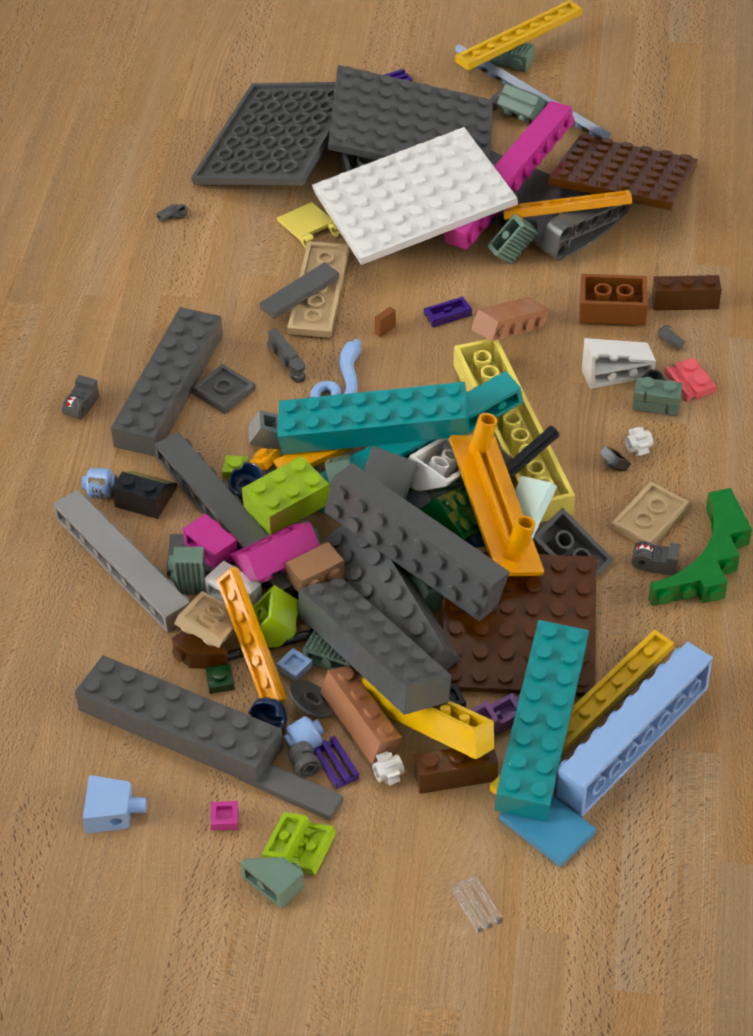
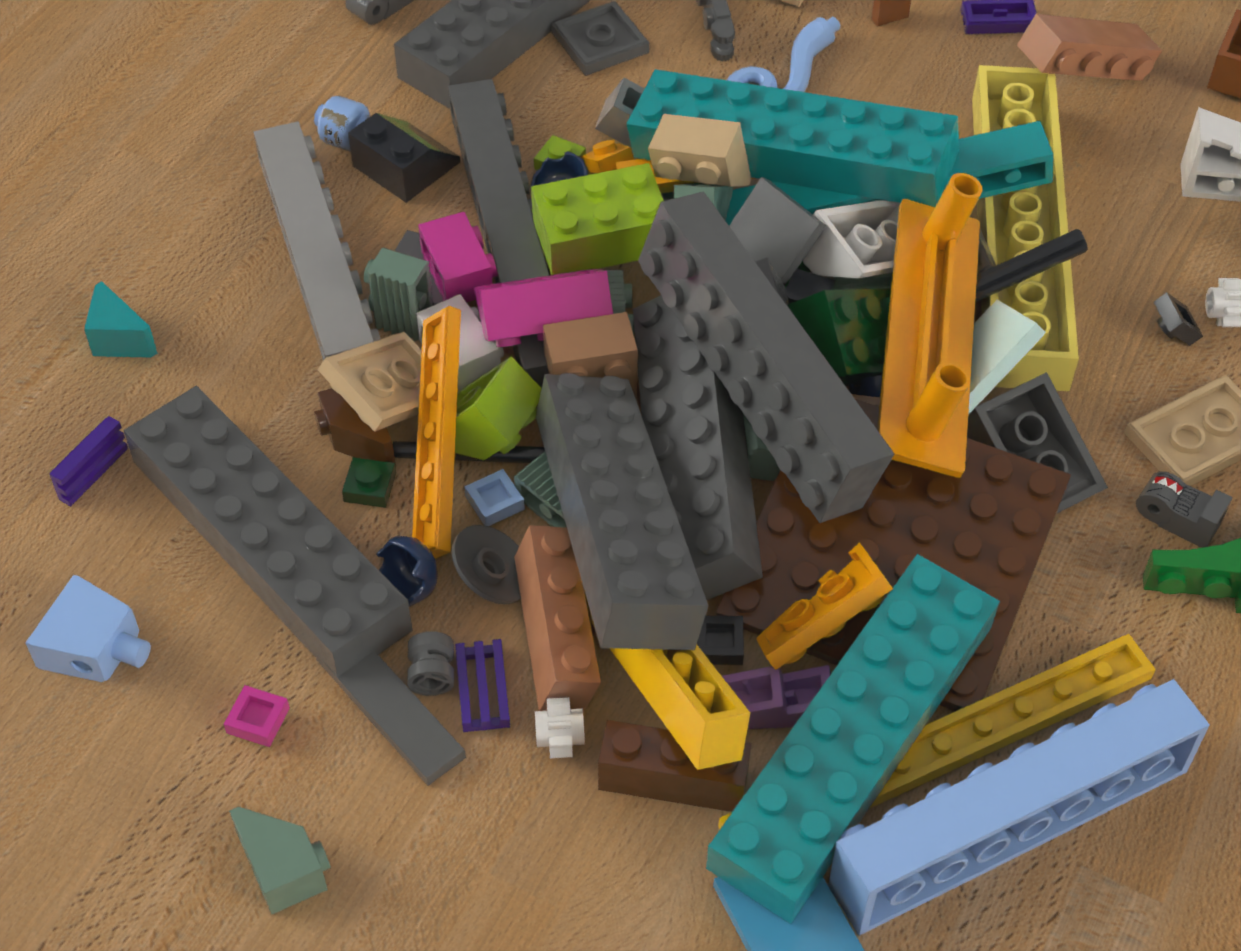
camera: 20 degrees right, 5 degrees up
(32, 639) = (115, 328): none -> teal slope
(57, 716) = (88, 461): none -> dark purple tile
(300, 842) = (354, 808): lime slope -> none
(304, 730) = (454, 617): light blue head -> none
(328, 440) = (700, 151): none -> tan slope
(501, 665) = (837, 600): none -> light orange wing

